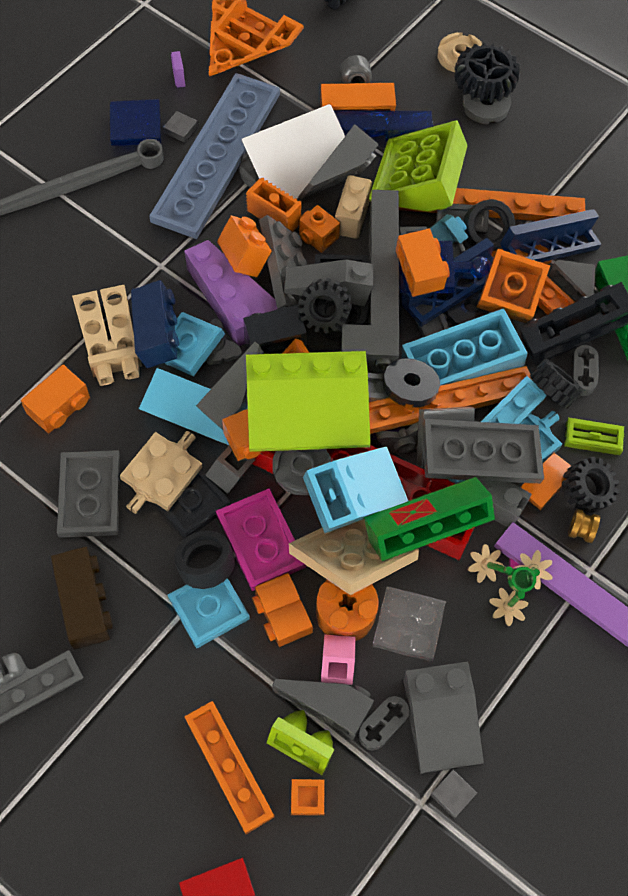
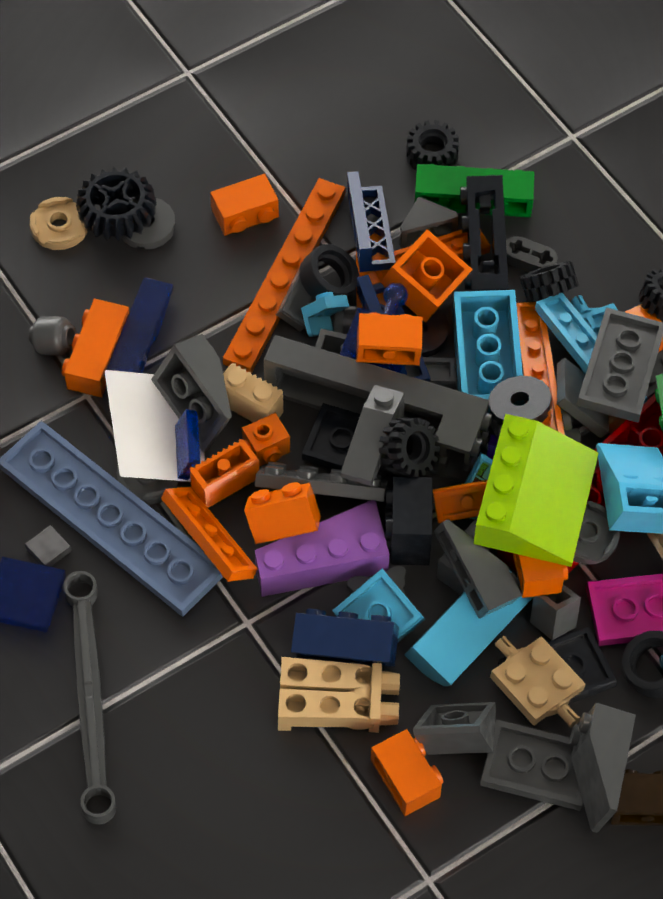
camera: 70 degrees left, 5 degrees down
(90, 524) = (600, 760): none -> dark grey slope
(102, 421) = (457, 728): none -> dark grey slope
(215, 213) = (209, 534): none -> orange plate
(292, 175) = (187, 443): none -> clear blue tile
(423, 167) = (231, 310): lime slope -> none
(532, 155) = (244, 204): none -> orange brick
(594, 441) = (598, 293): lime tile -> none

